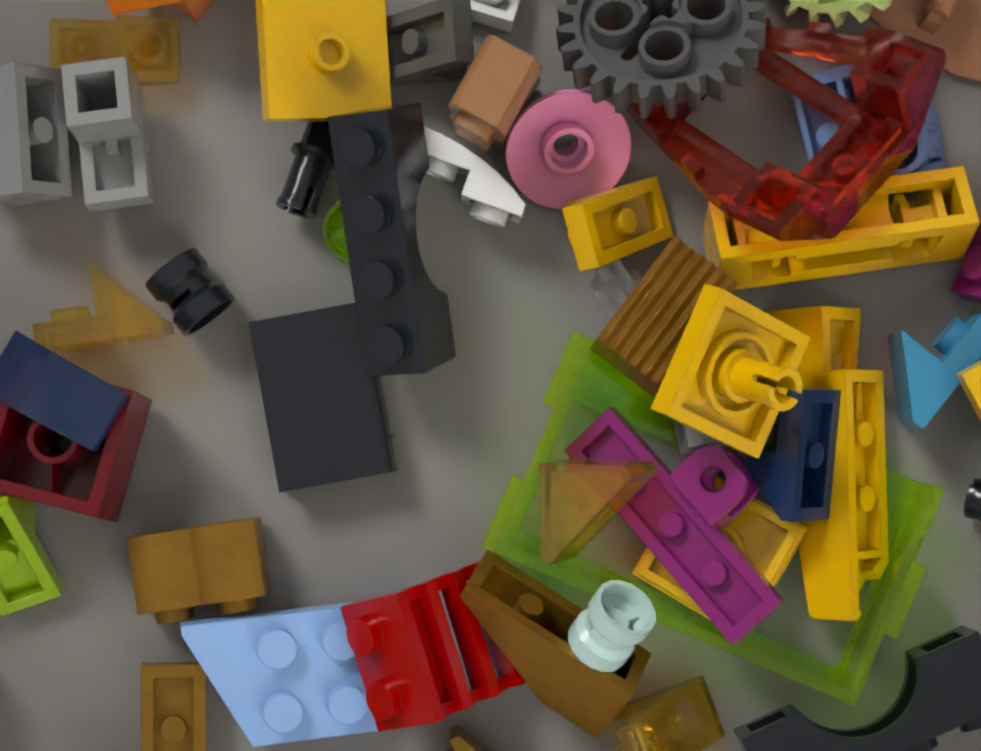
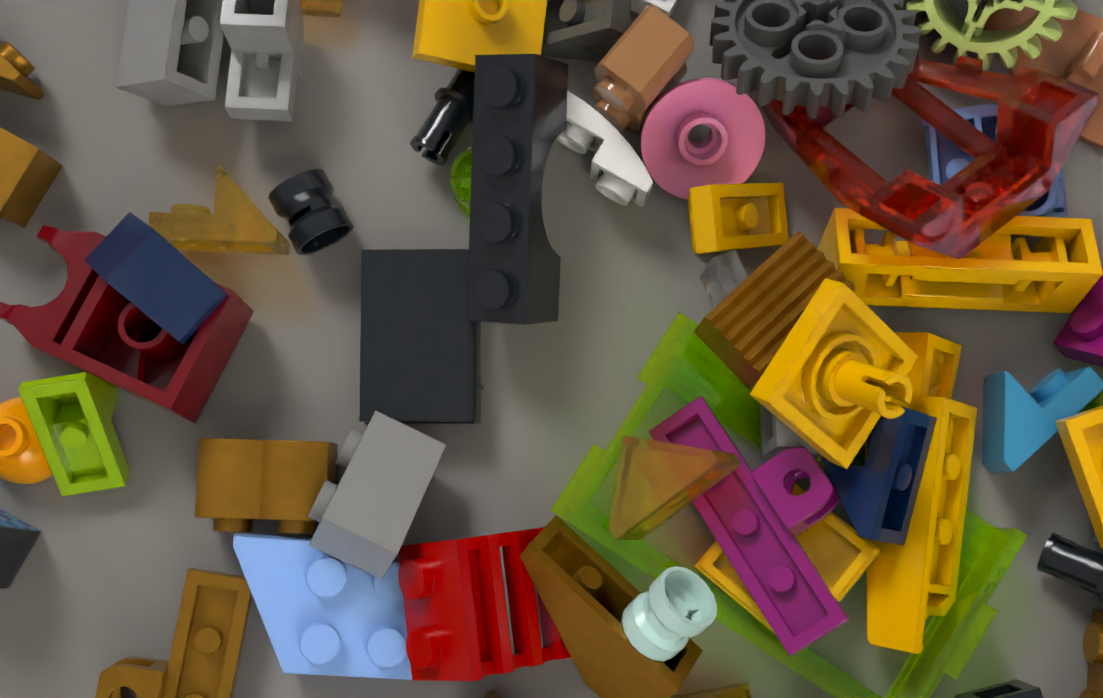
camera: 10 degrees right, 5 degrees down
(311, 560) = (377, 496): none -> light grey brick

